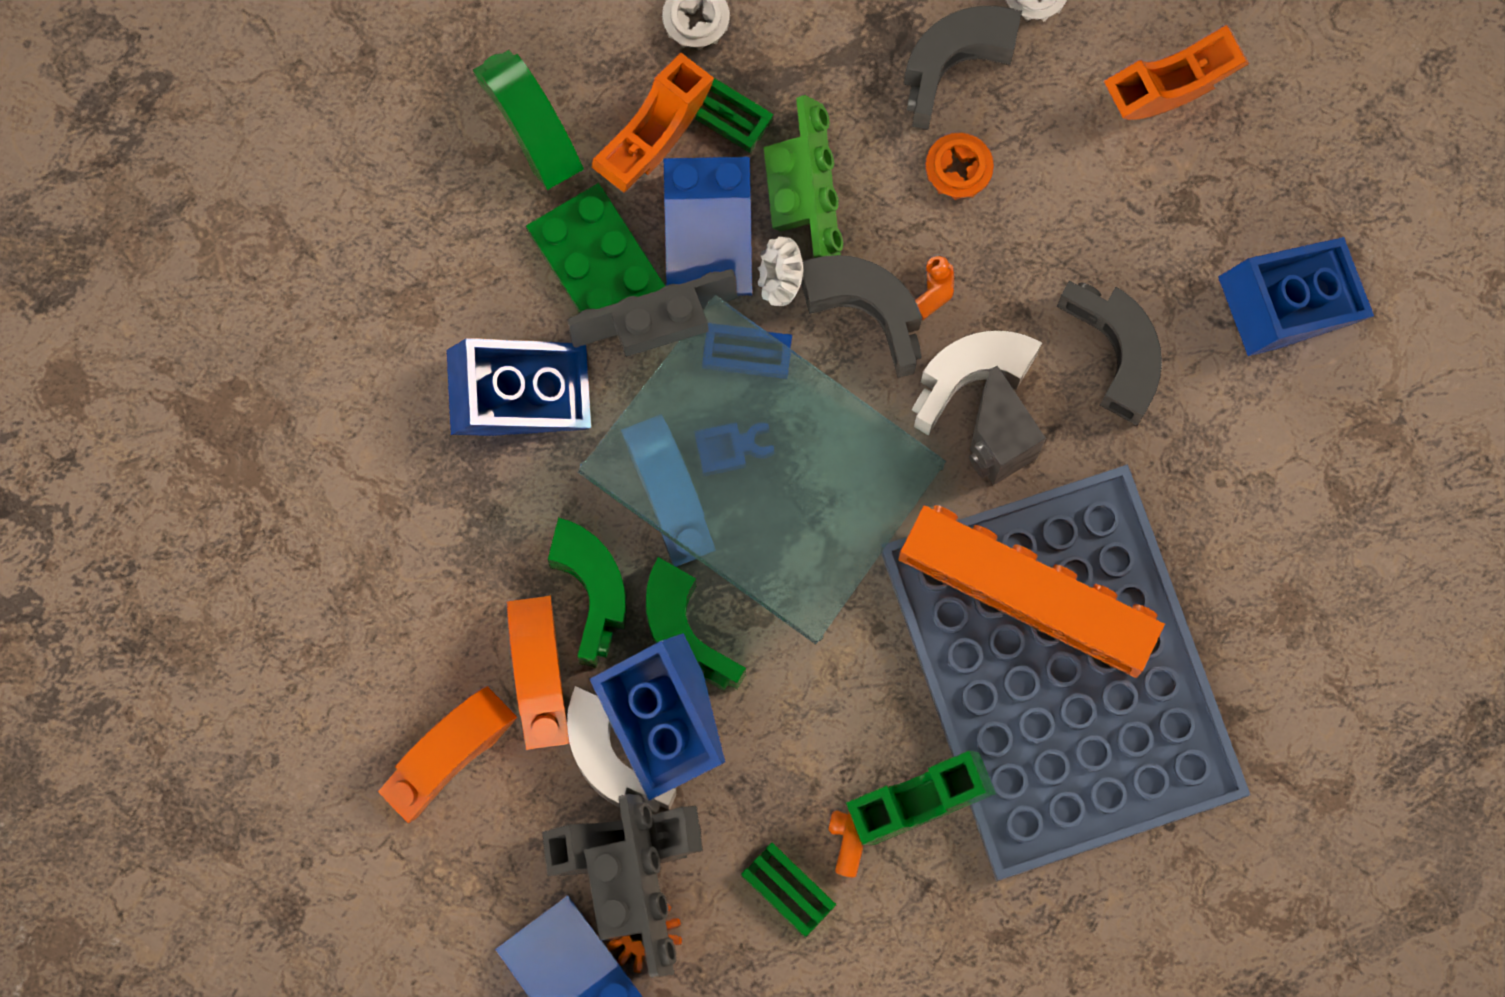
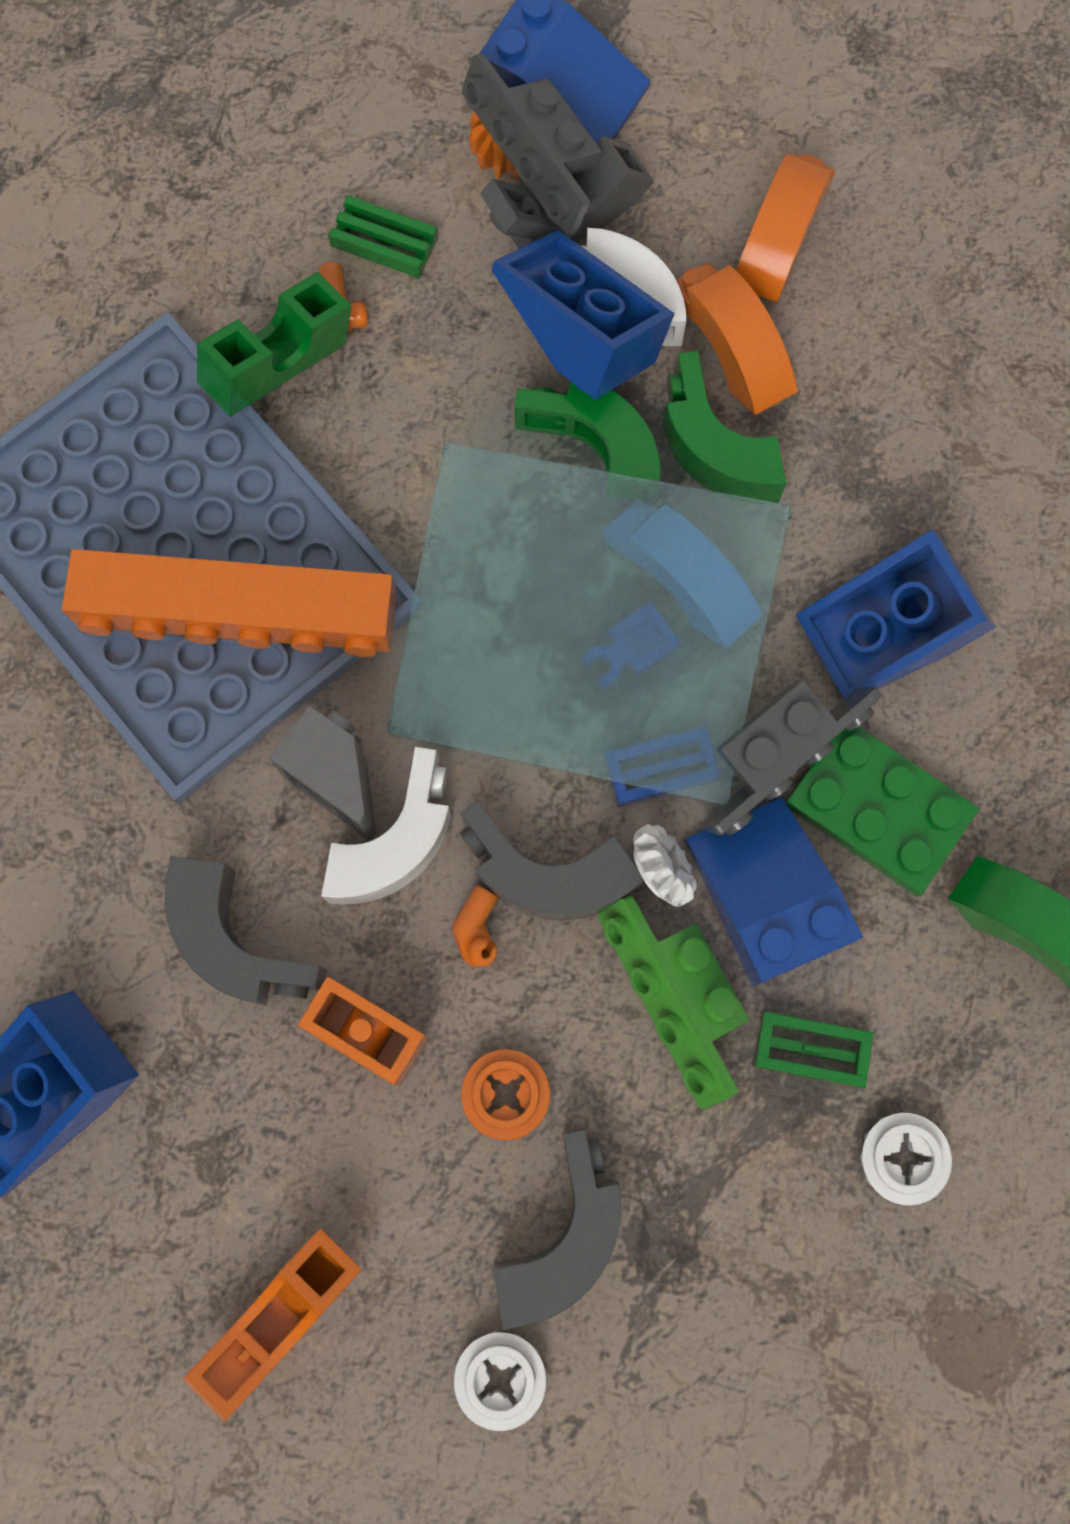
camera: 160 degrees right, 0 degrees up
(657, 124) = (889, 981): orange arch -> none
(1045, 239) = (363, 1031): none -> orange brick

